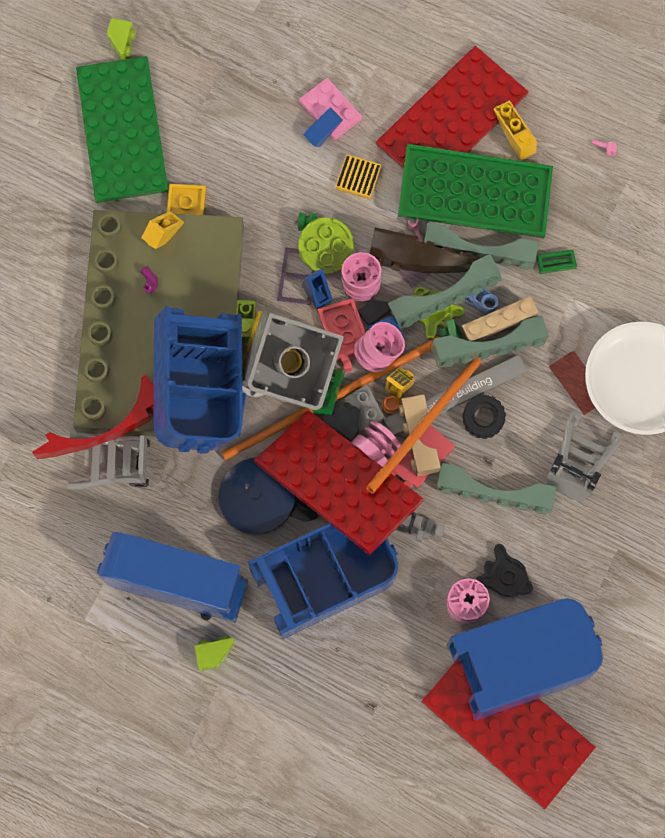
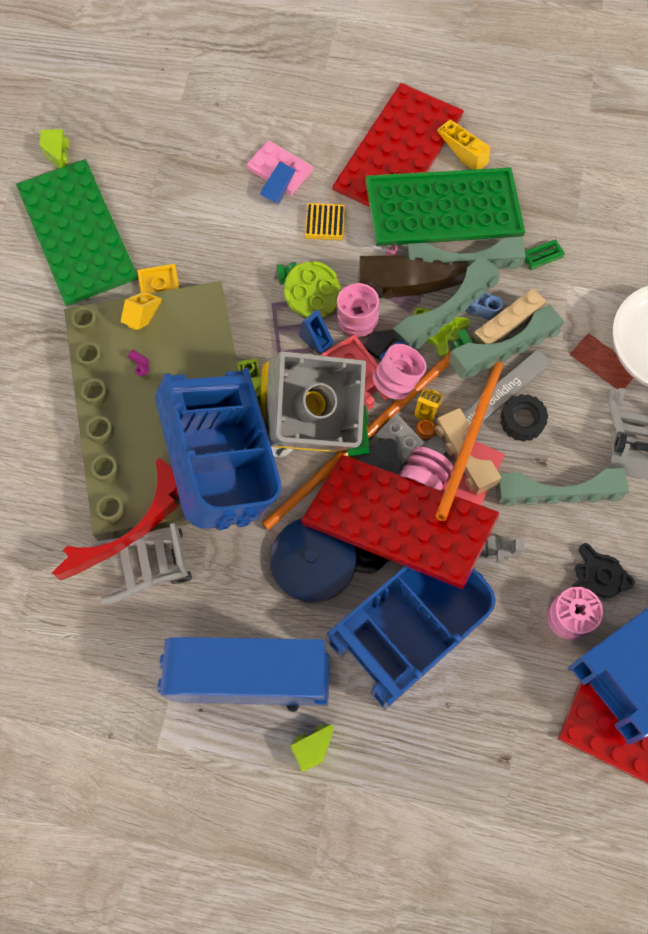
camera: 15 degrees left, 5 degrees down
(610, 147) = (558, 142): bright pink hand -> none

